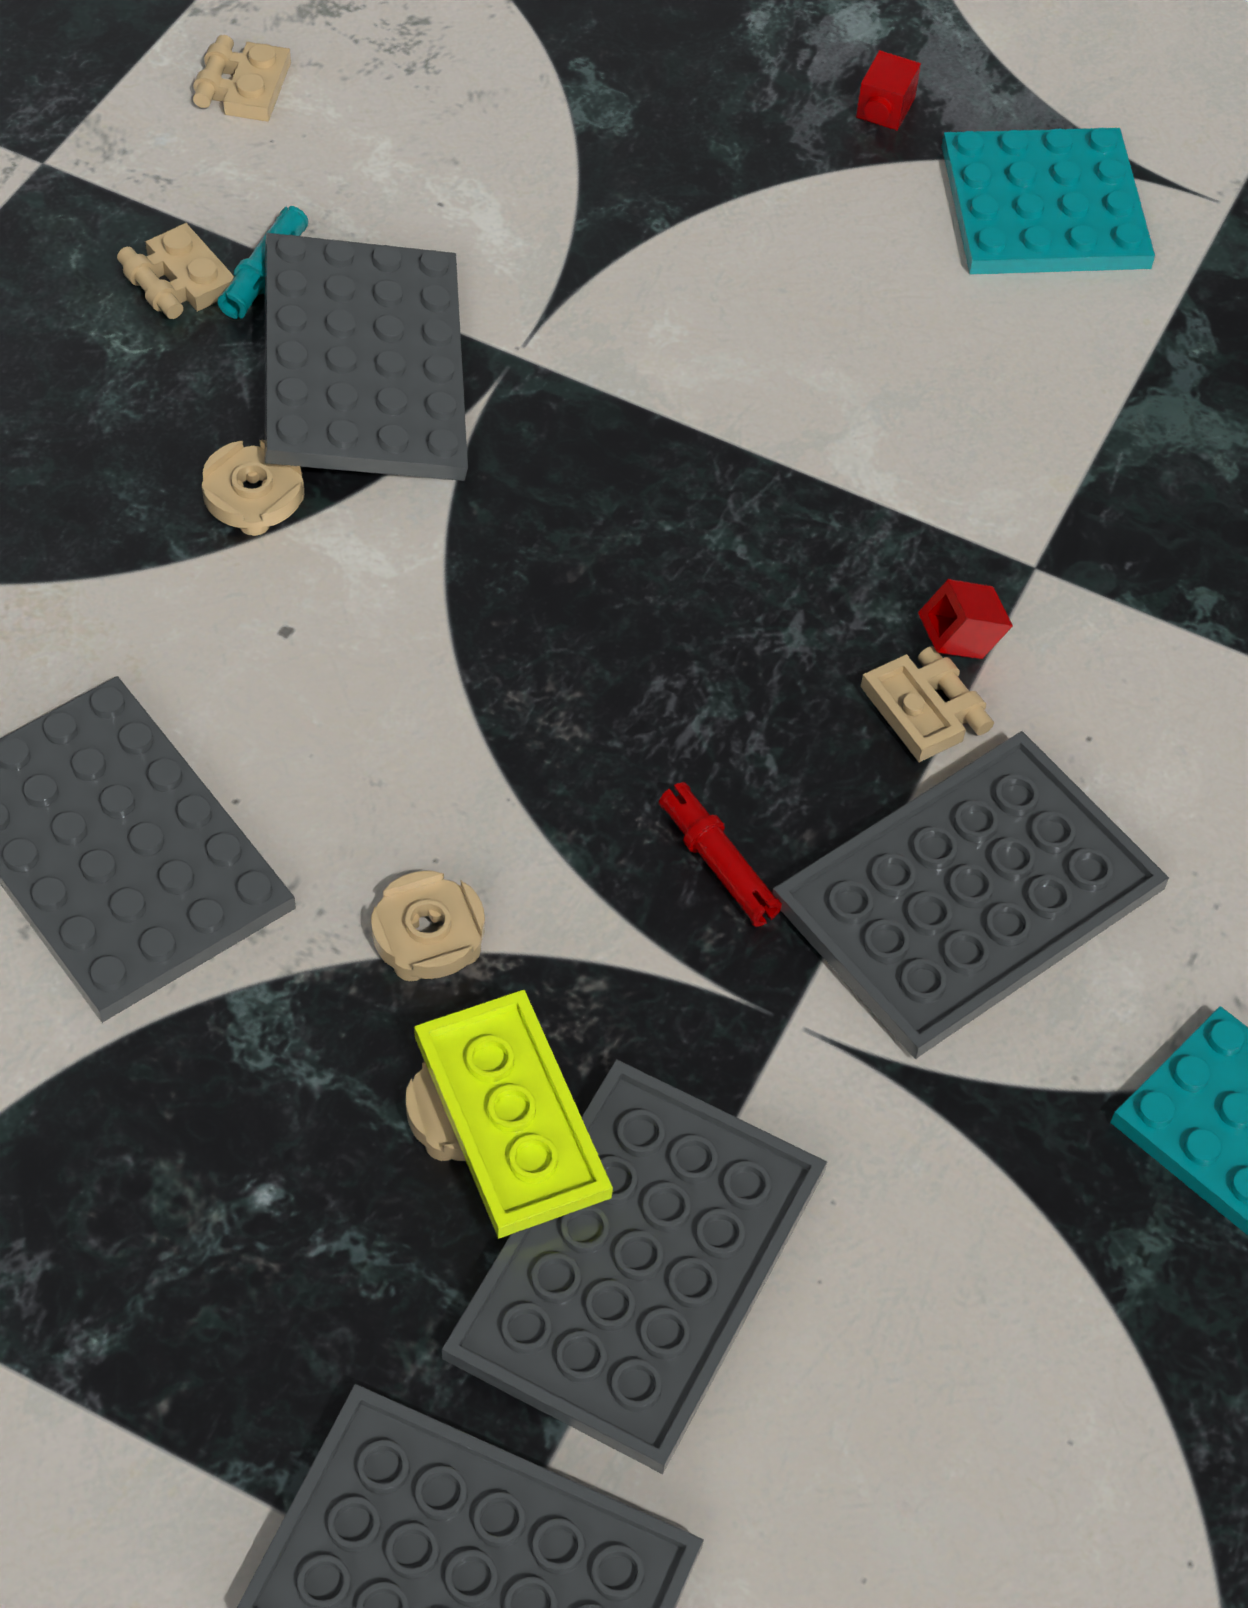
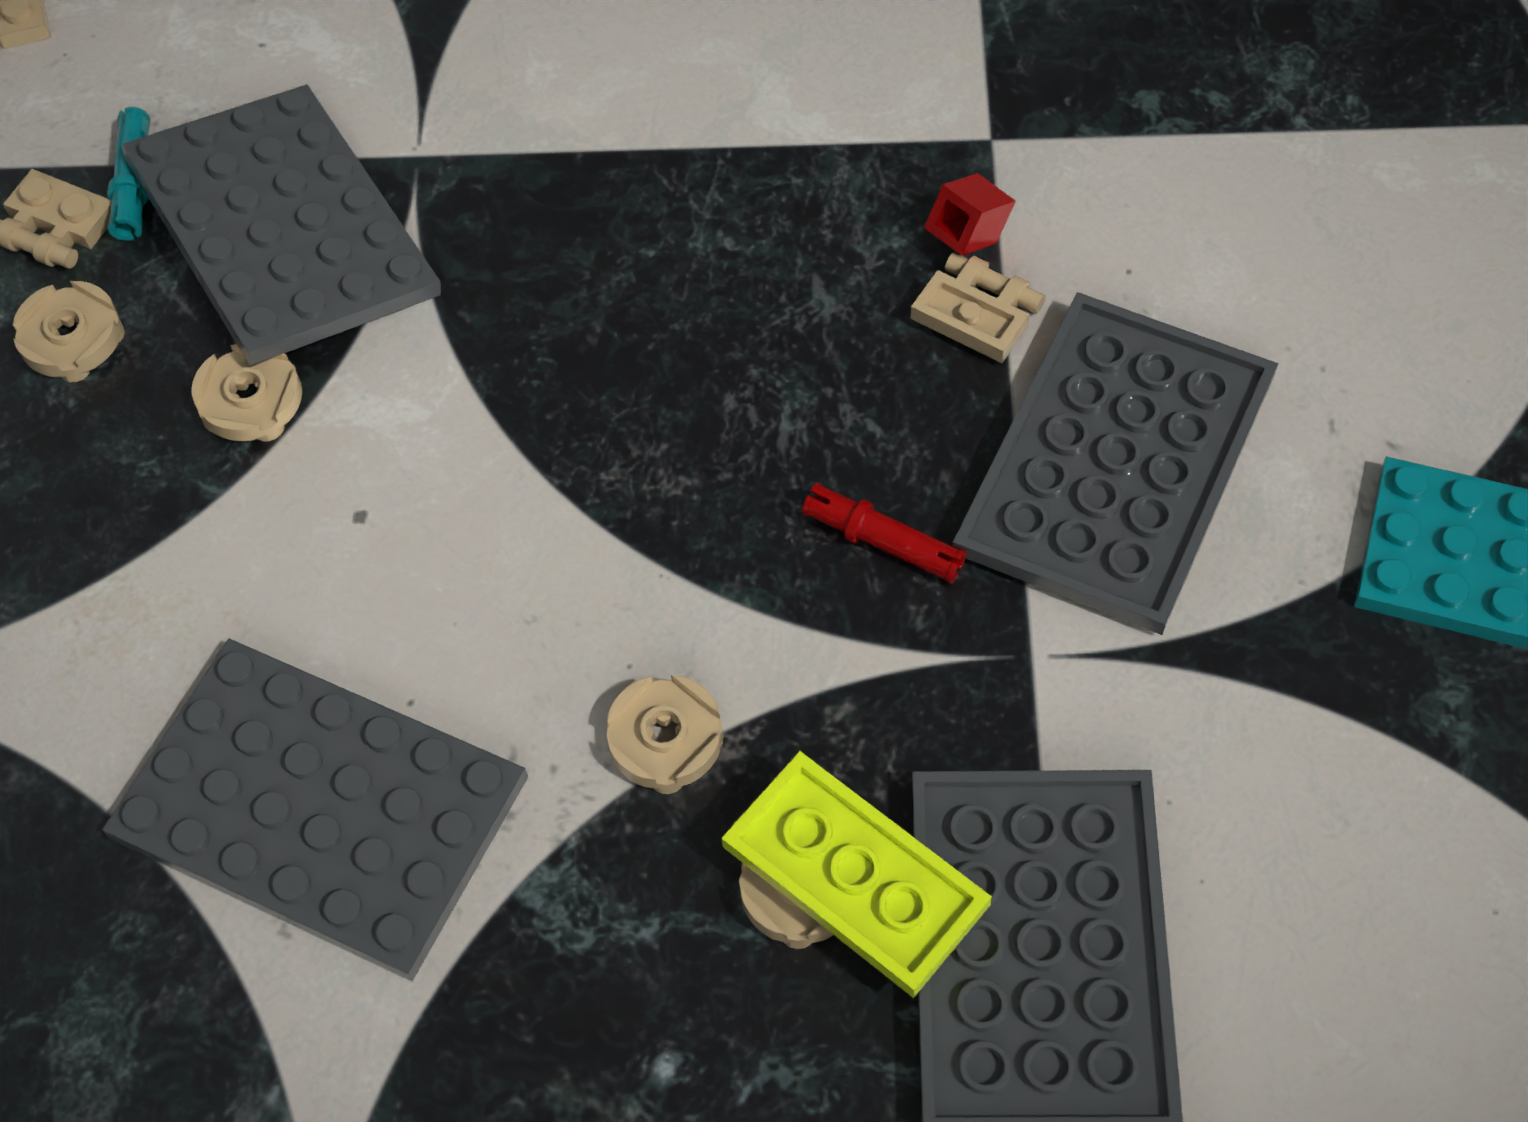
camera: 20 degrees left, 5 degrees up
(142, 388) = (77, 352): none -> tan plate

